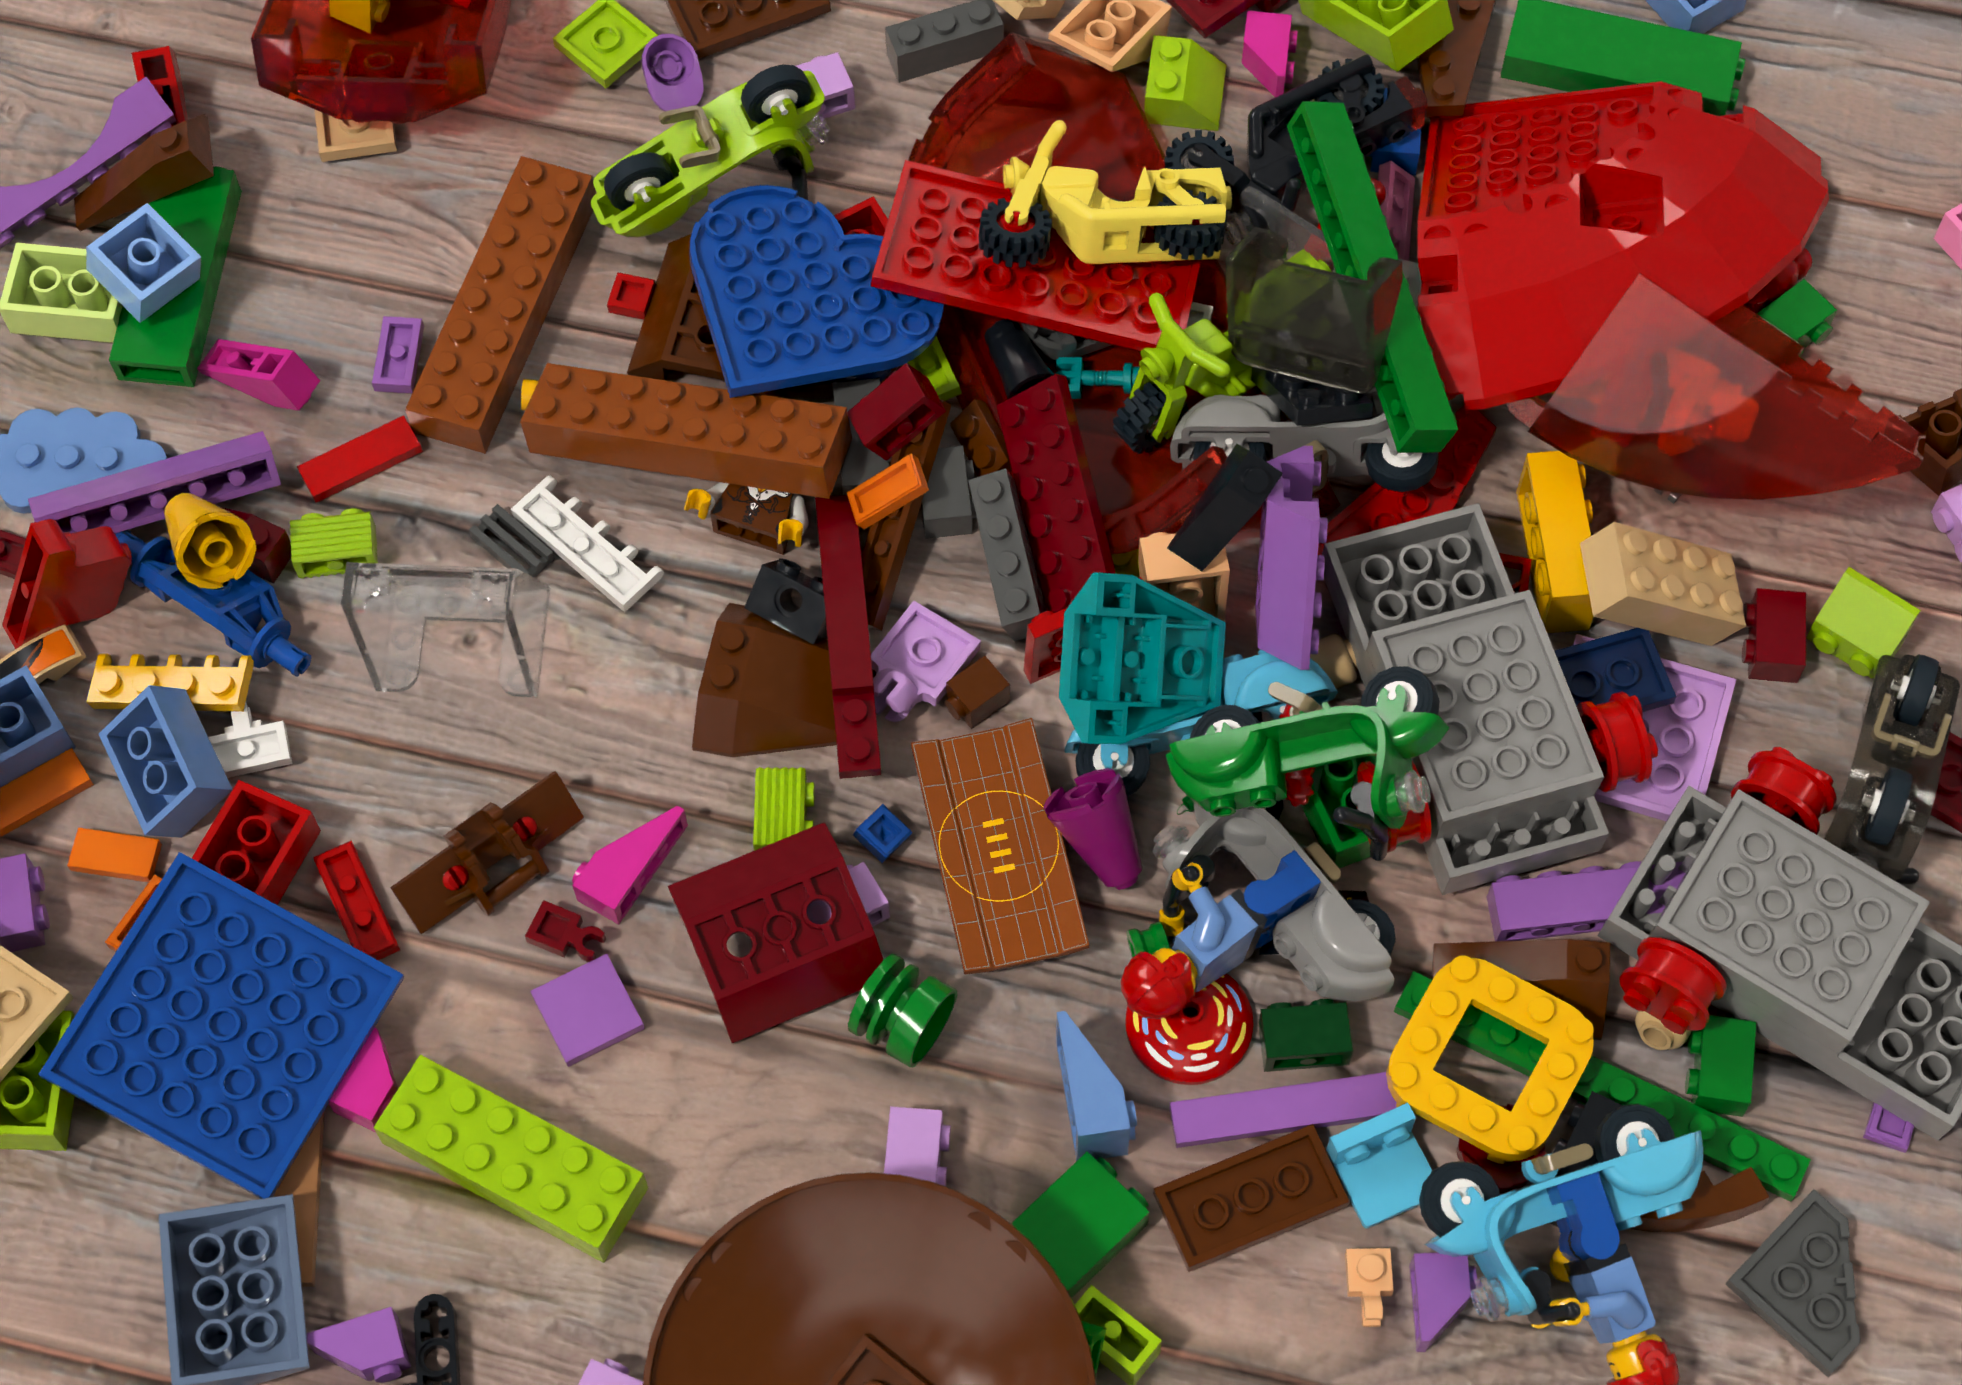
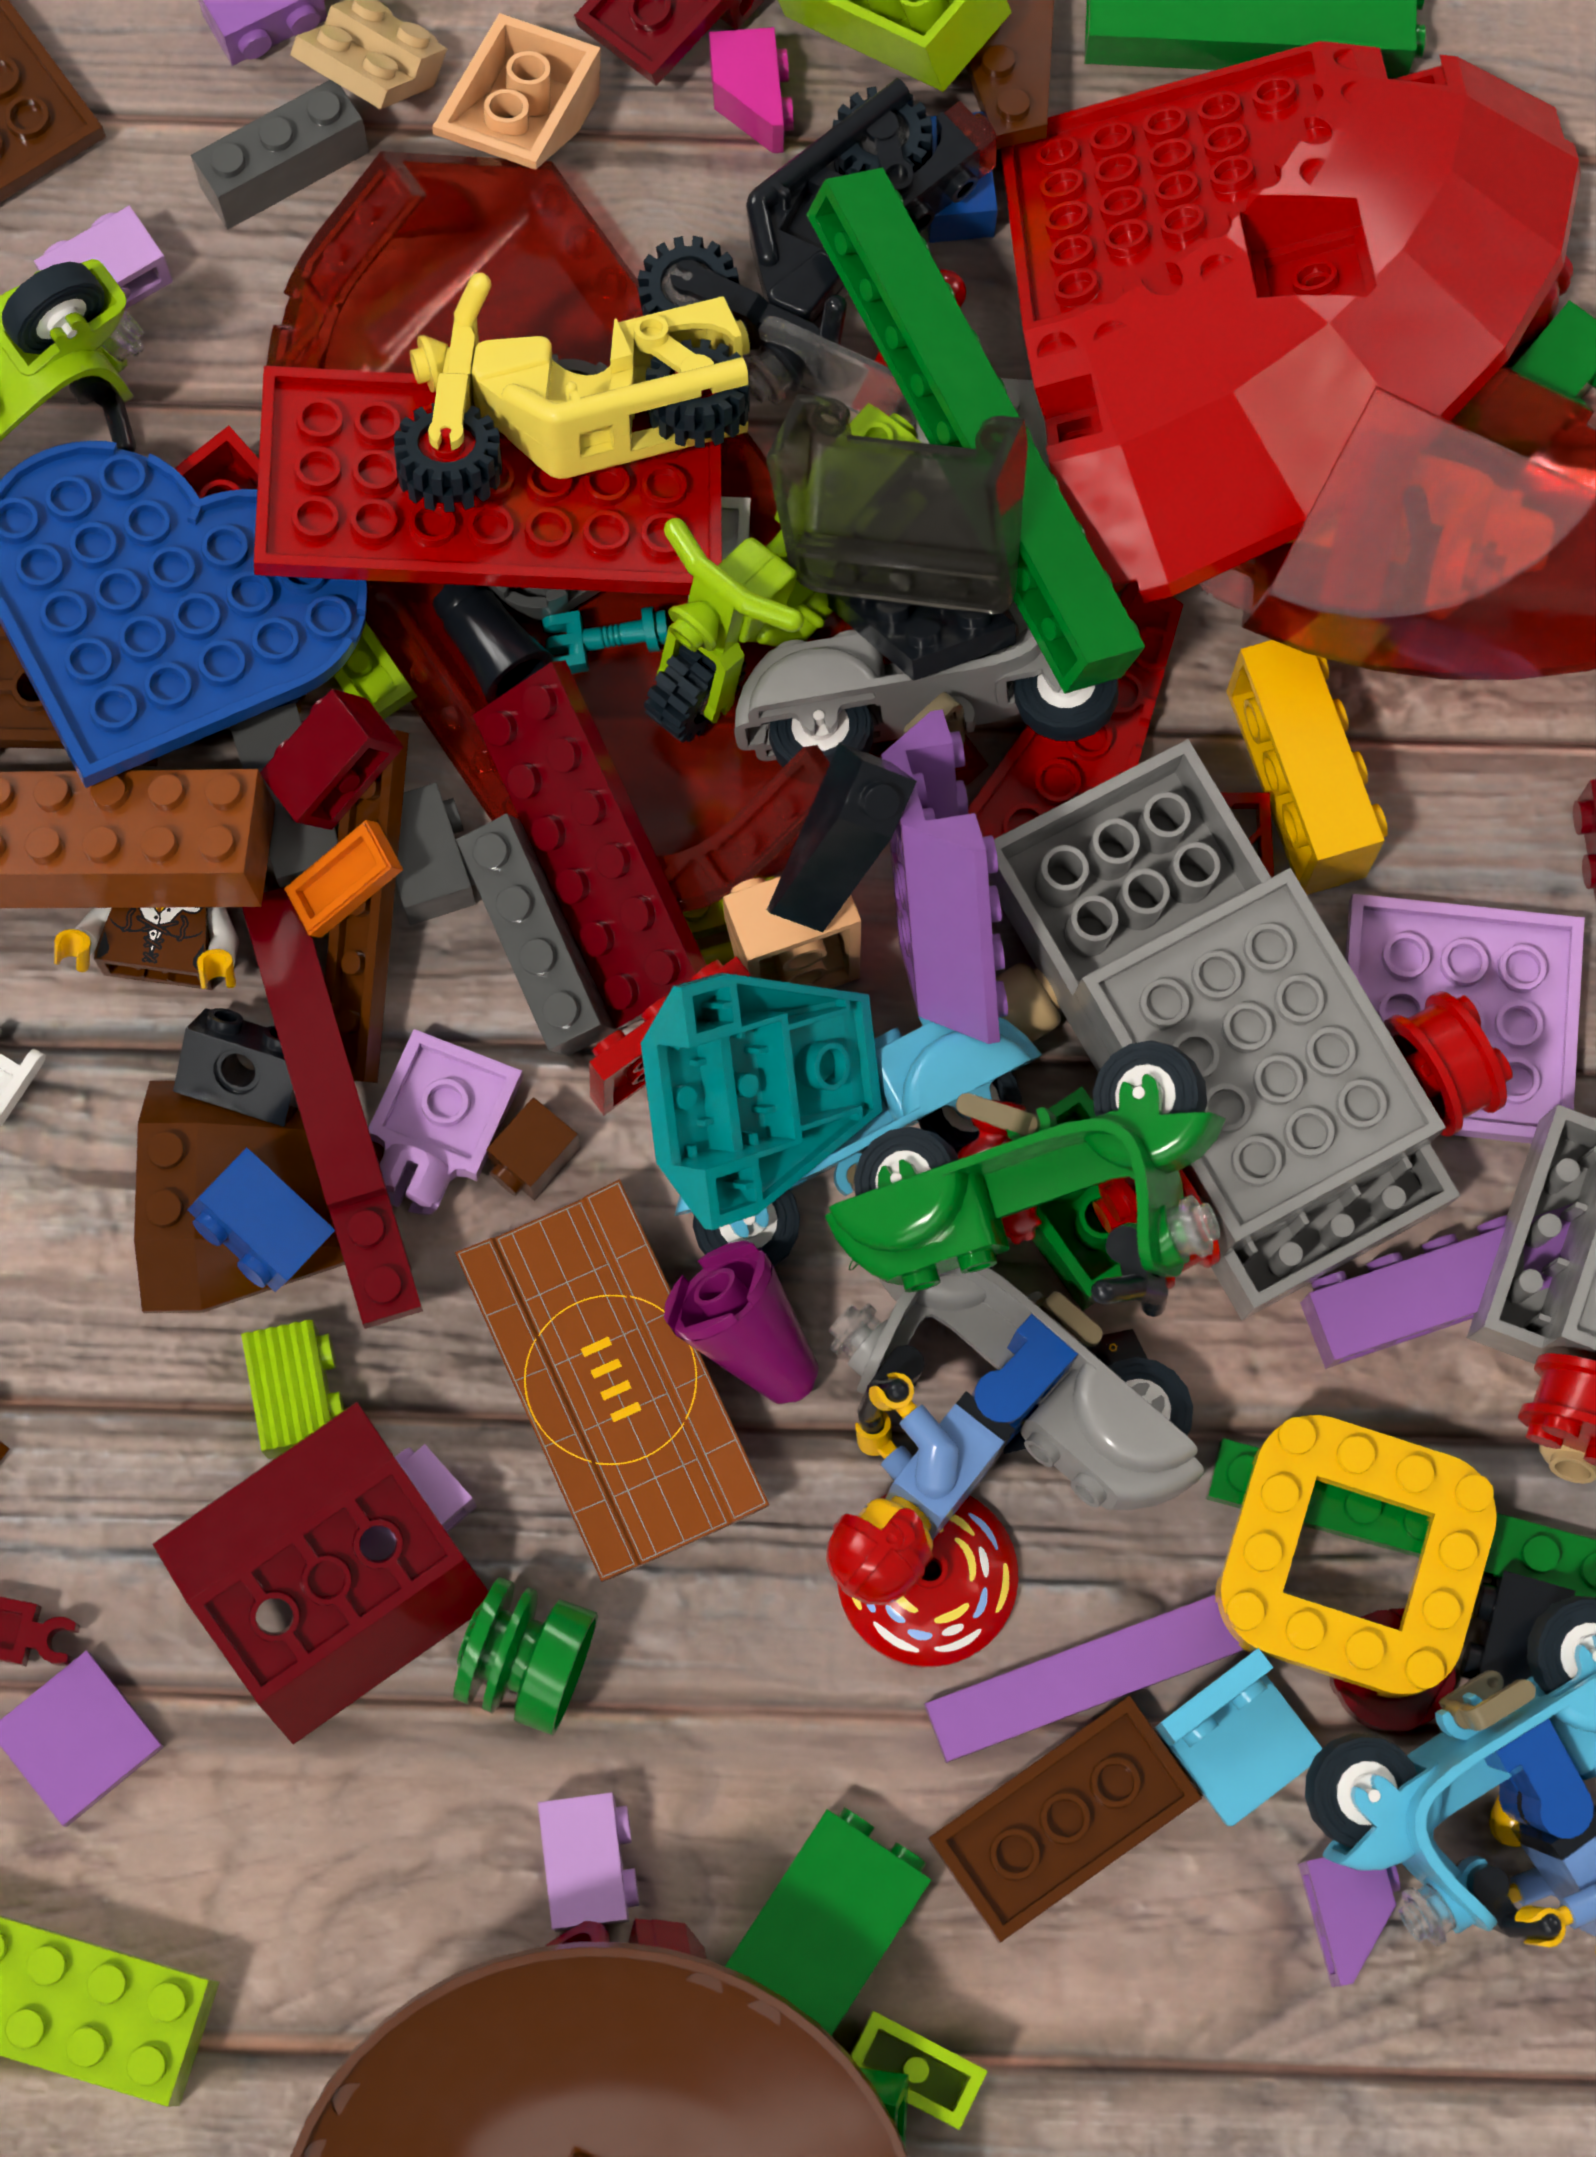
camera: 15 degrees left, 10 degrees up
(624, 867) = (82, 1520): dark pink slope -> none
(784, 695) = (259, 1221): none -> blue brick
(882, 833) = (441, 1387): blue tile -> none
(981, 438) = (462, 766): reddish brown plate -> none
(1094, 1096) = (821, 1732): medium blue slope -> none
(1147, 940) = (850, 1479): green wheel -> none
(1183, 85) = (640, 161): lime slope -> none
(1305, 1035) = (1092, 1566): dark green brick -> none
(1369, 1278) = (1248, 1896): light nougat plate -> none
(1398, 205) = (977, 265): bright pink plate -> none
(1562, 967) = (1428, 1401): reddish brown wedge -> none
(1617, 664) = (1420, 946): dark blue plate -> none
(1662, 584) = (1462, 806): tan brick -> none

